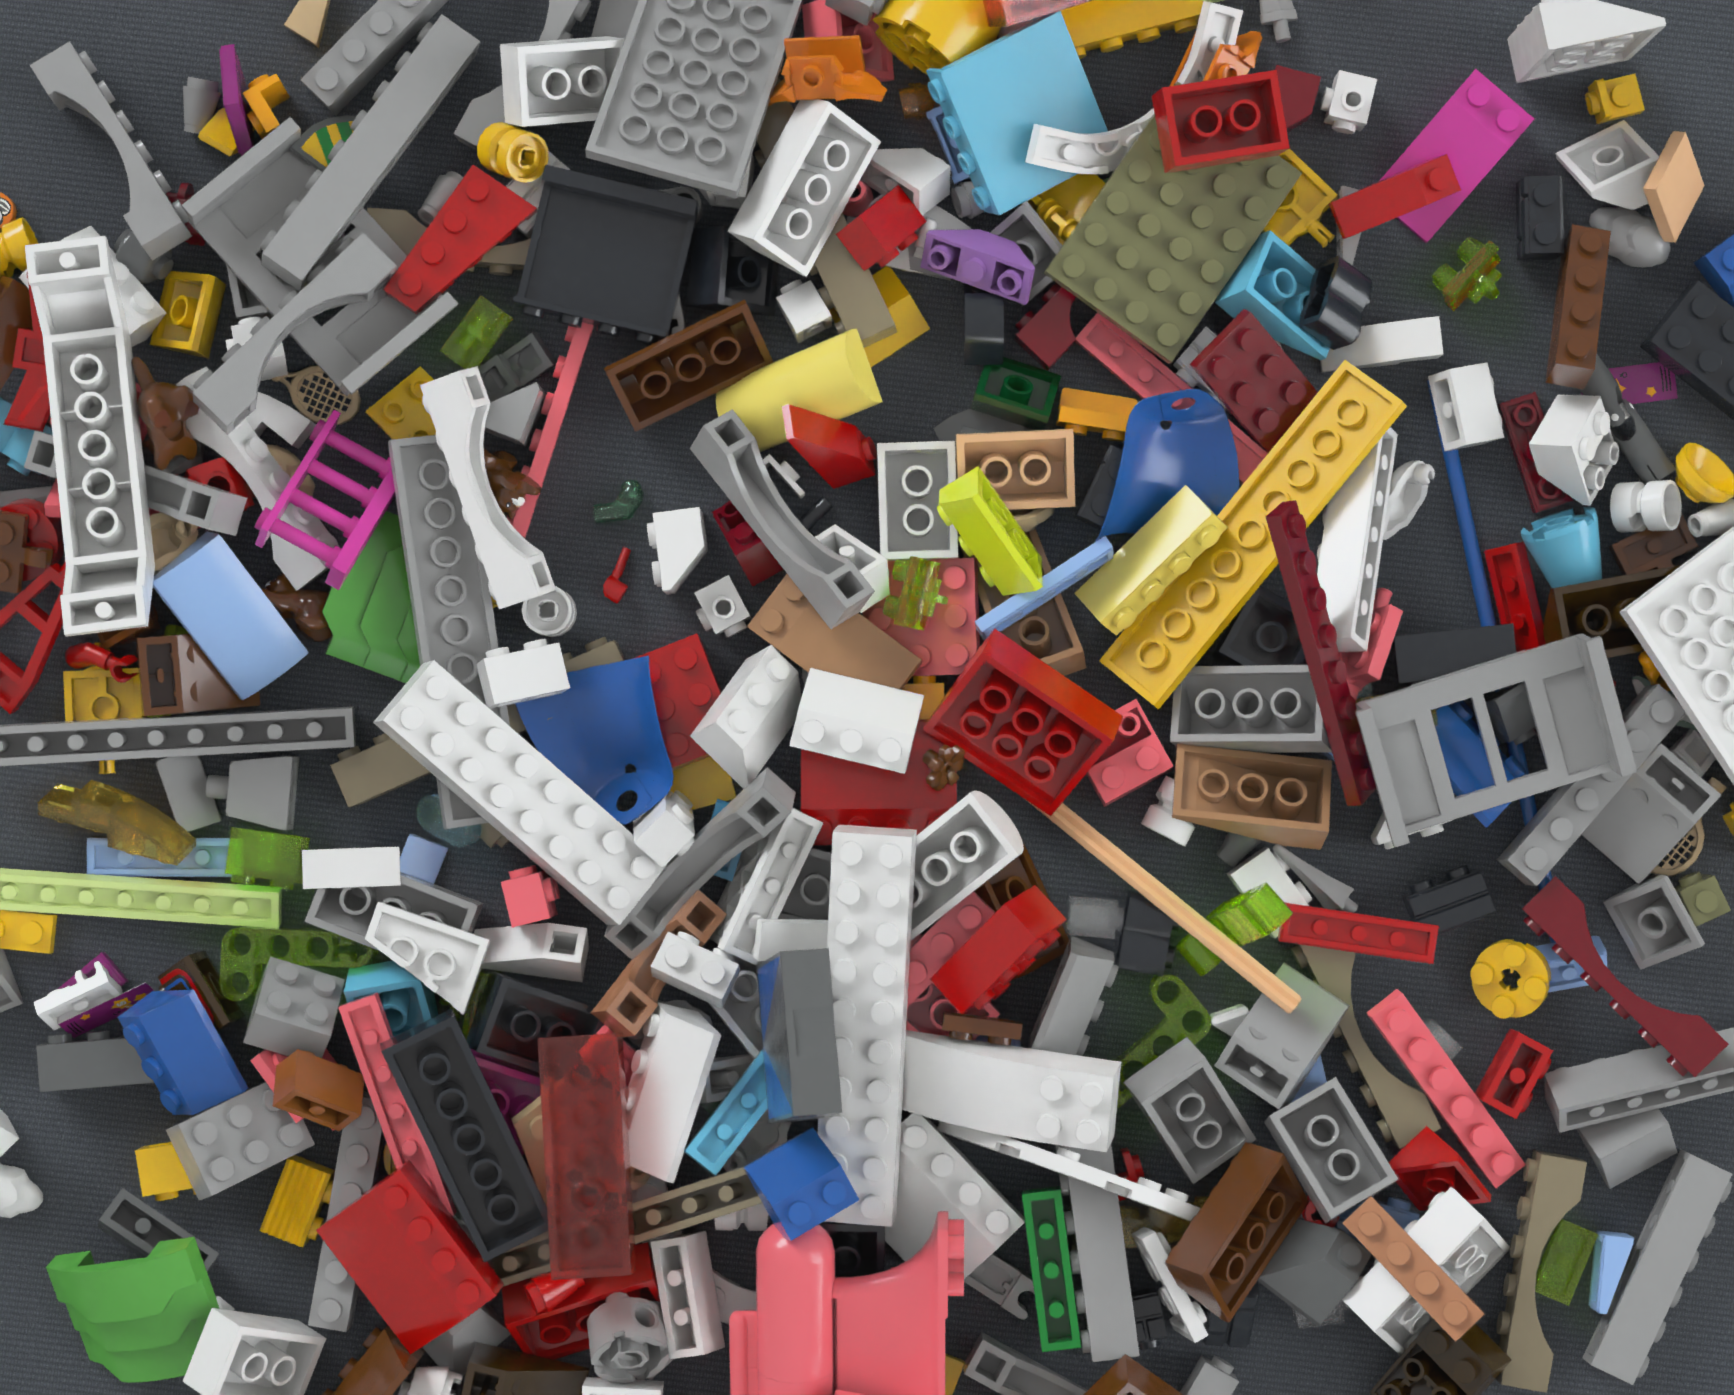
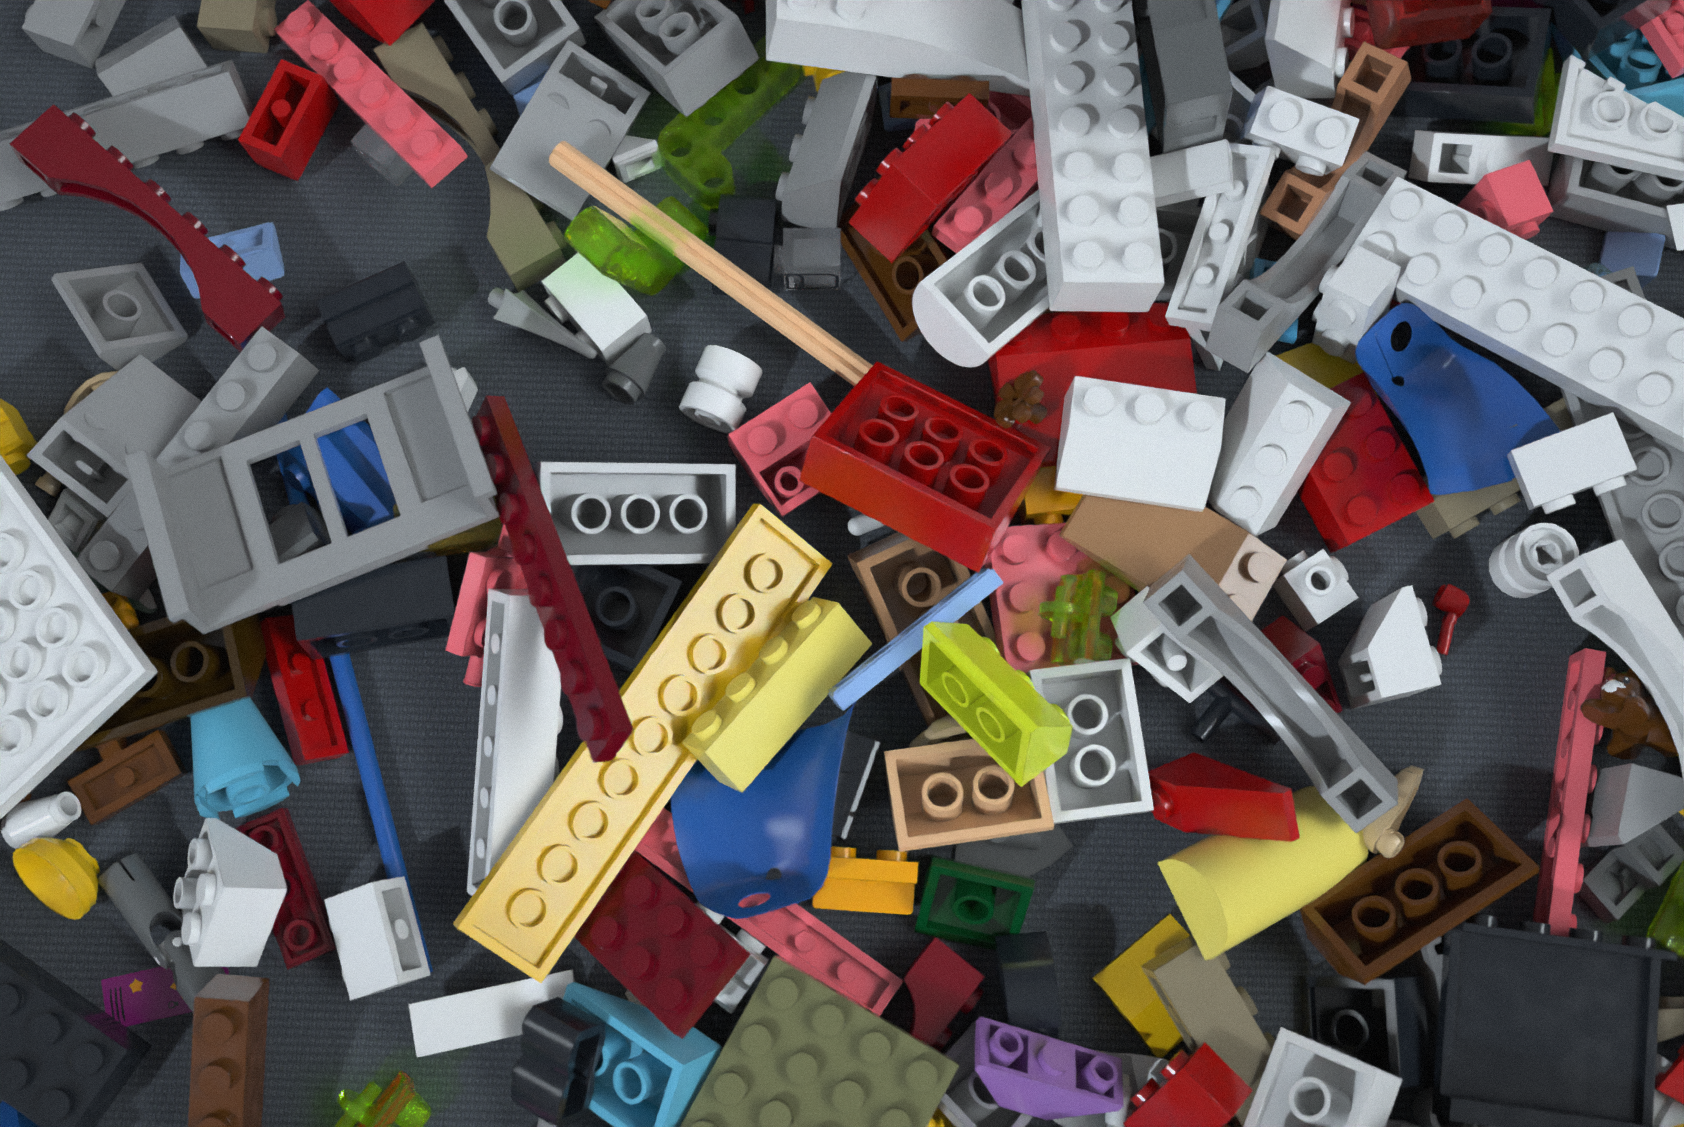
camera: 175 degrees right, 10 degrees down
(624, 505) = (1456, 706): clear green arm -> none
(702, 412) = (1382, 834): none -> tan arm
(786, 472) = (1260, 765): white bracket -> none
(803, 309) = (1272, 981): white slope -> none
(1254, 794) = (625, 410): medium nougat slope -> none
(1360, 933) = (482, 258): red tile -> none
(1406, 494) = (450, 816): white arm -> none
(1503, 999) = (300, 206): yellow plate -> none
(1642, 506) = (127, 825): white wheel -> none
(1702, 897) = (61, 343): olive brick -> none

